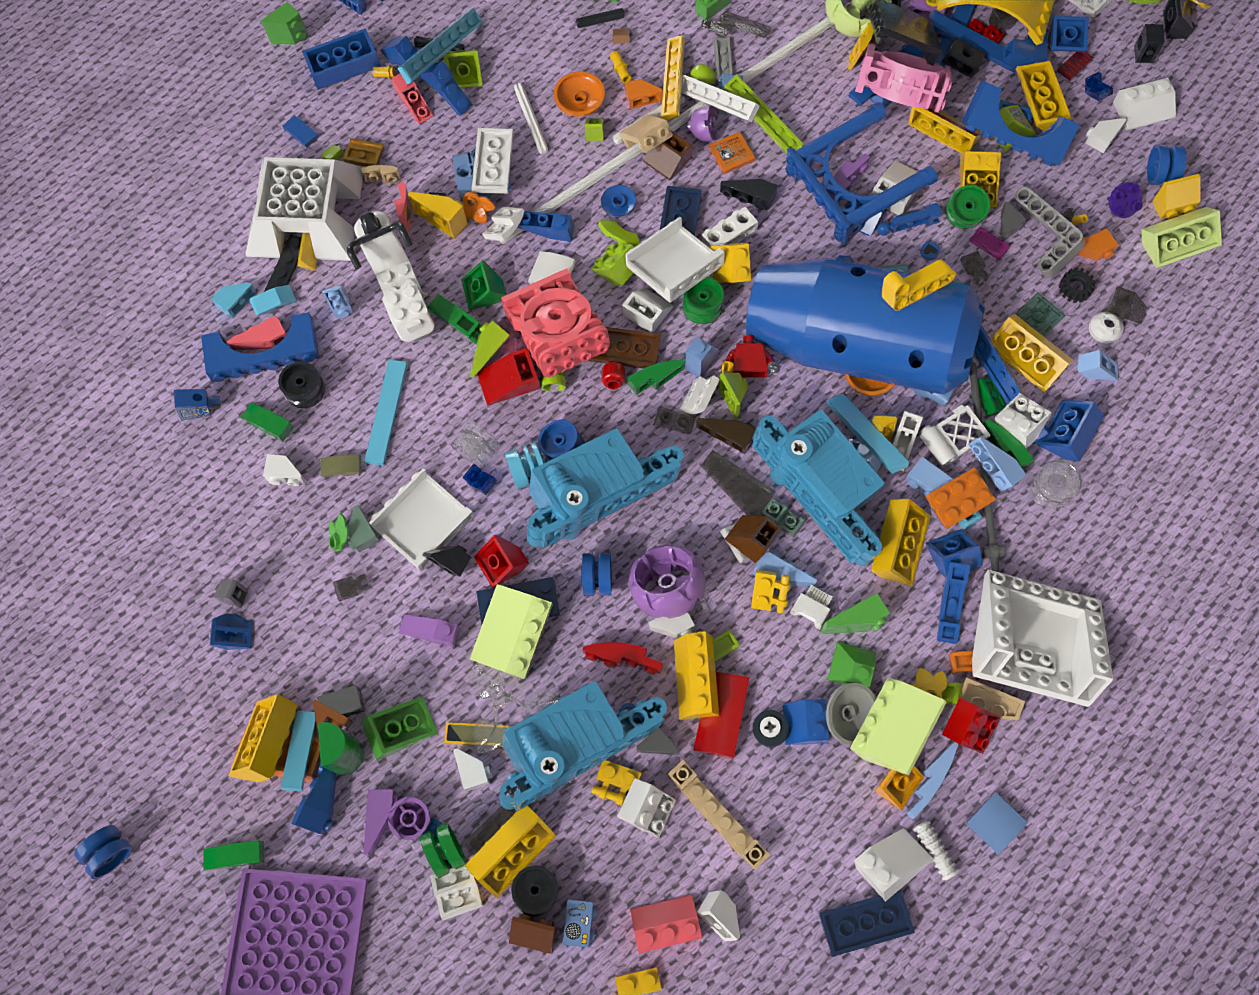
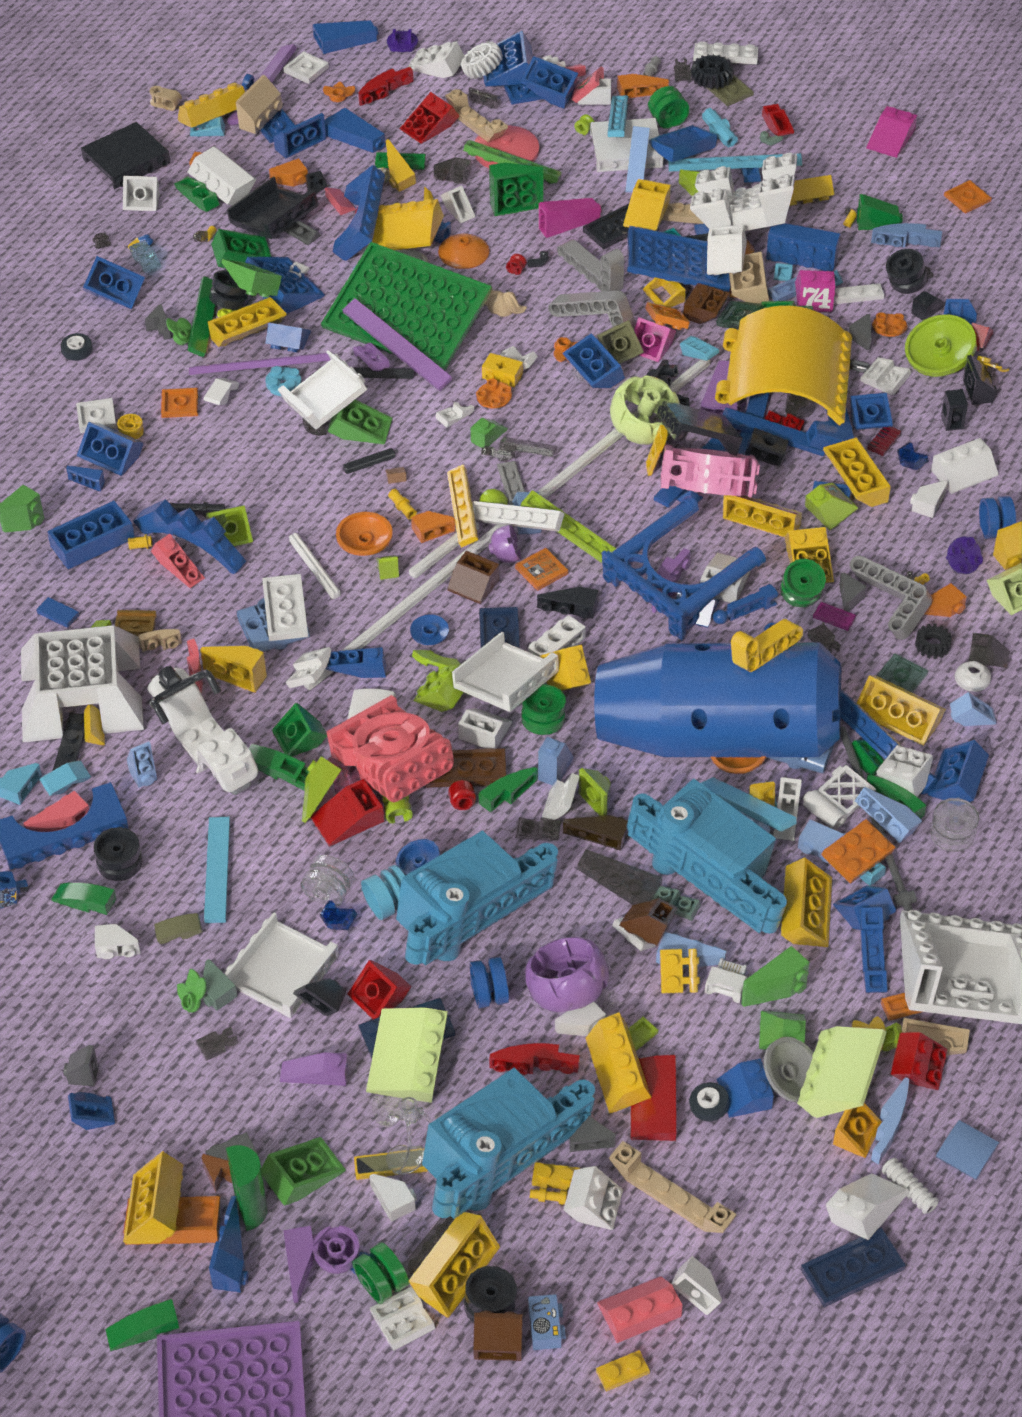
camera: 15 degrees left, 20 degrees down
(299, 751) = (196, 1208): medium azure tile -> none
(440, 46) = (204, 504): medium azure tile -> none
(478, 208) = (278, 657): orange plate -> none
(647, 132) = (448, 557): tan panel -> none
(749, 360) = (608, 758): red torso -> none
(985, 117) = (800, 494): blue arch -> none

